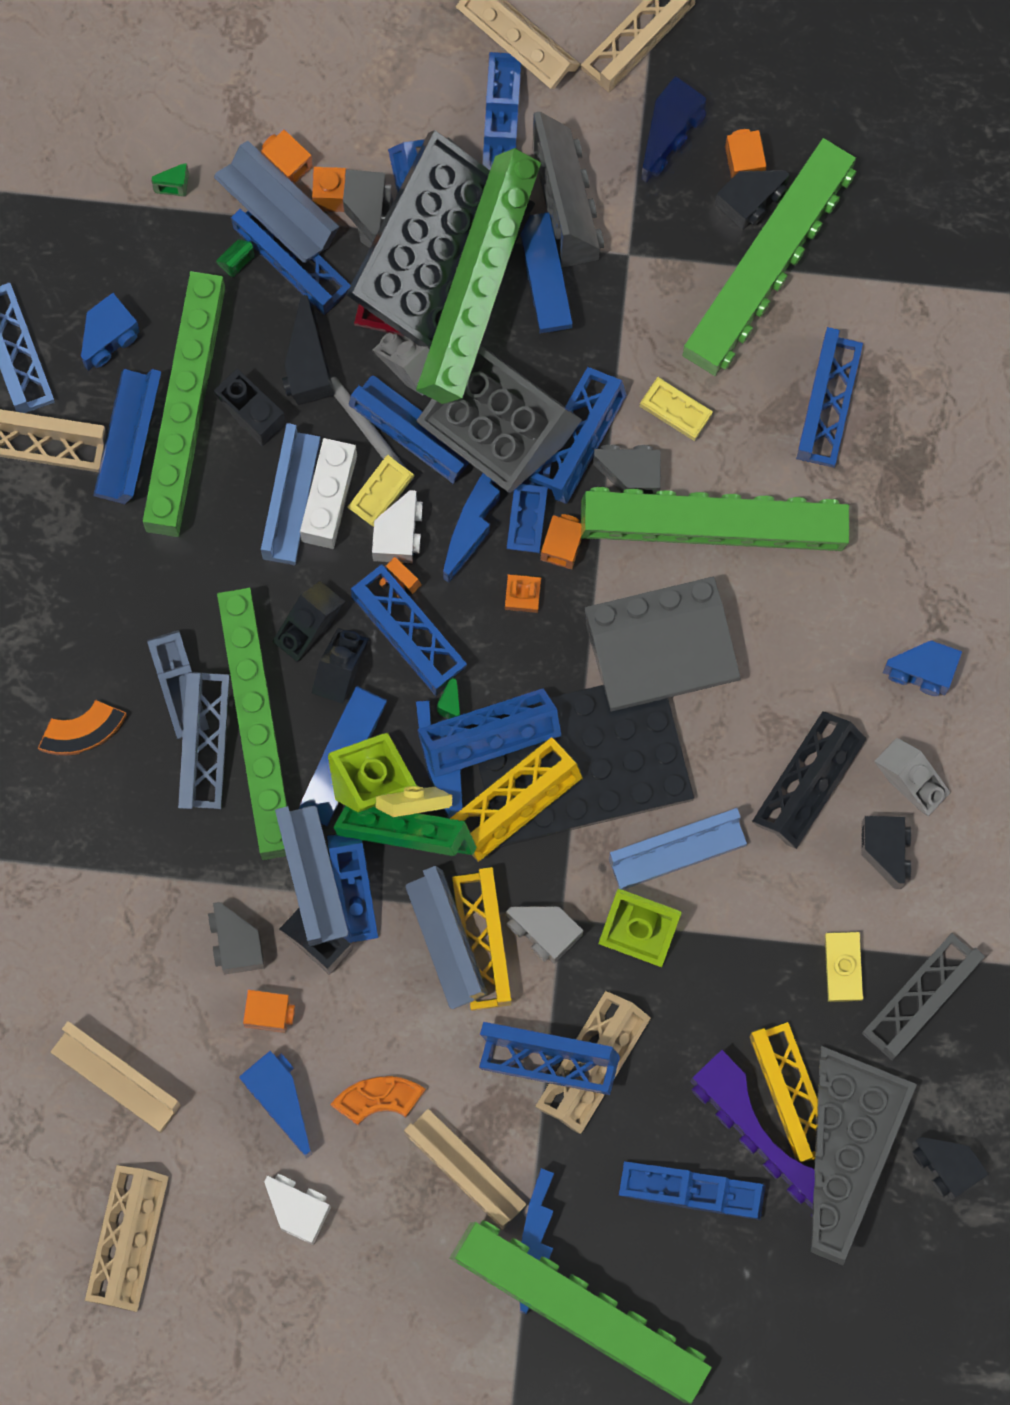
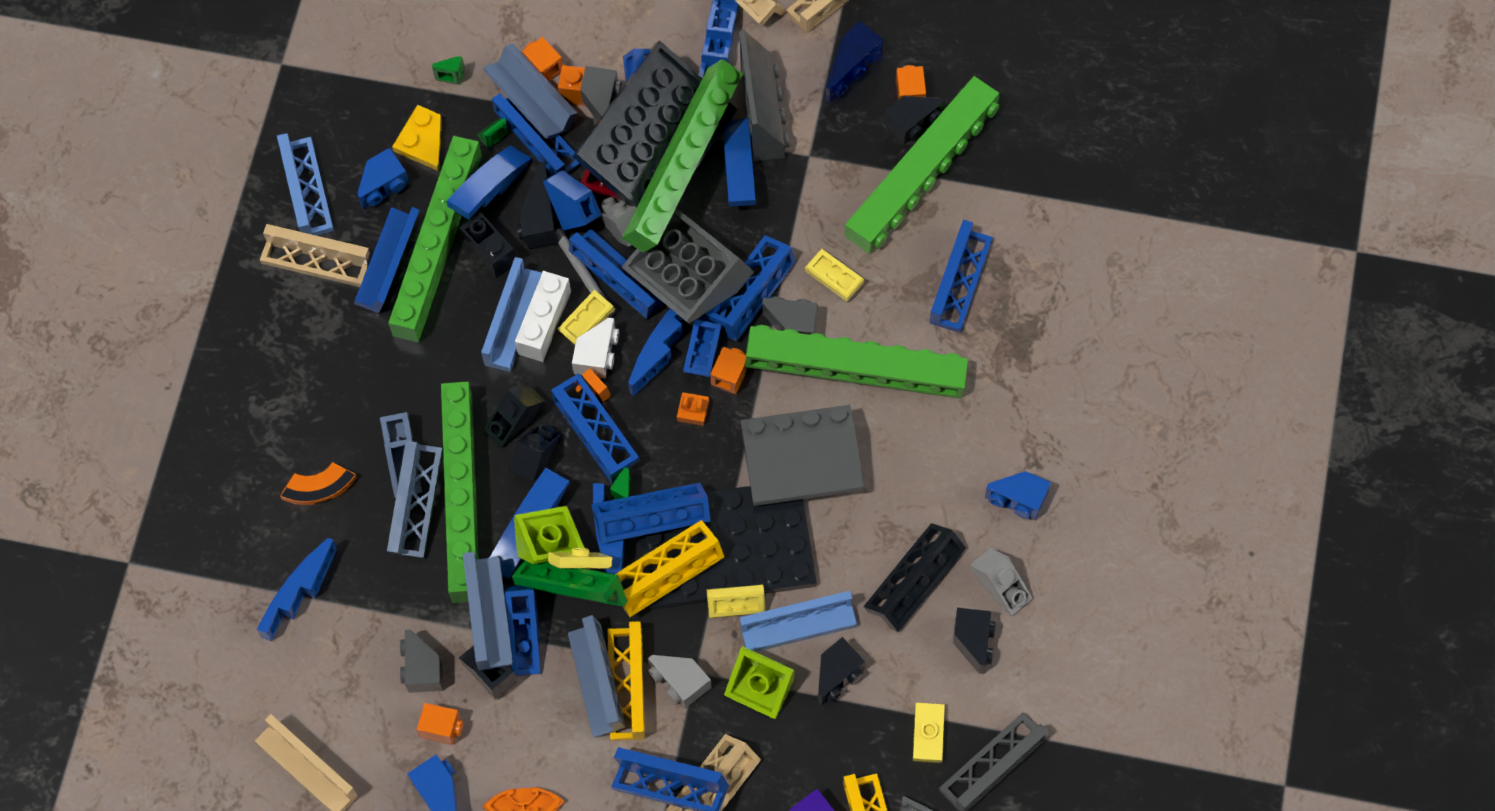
camera: 10 degrees right, 10 degrees down
(82, 852) = (303, 581): none -> blue slope
(148, 272) = (421, 138): none -> yellow wing
(241, 326) = (488, 181): none -> blue slope
(347, 344) = (571, 200): none -> blue slope
(601, 829) = (736, 601): none -> light yellow plate
(730, 900) = (838, 667): none -> black slope

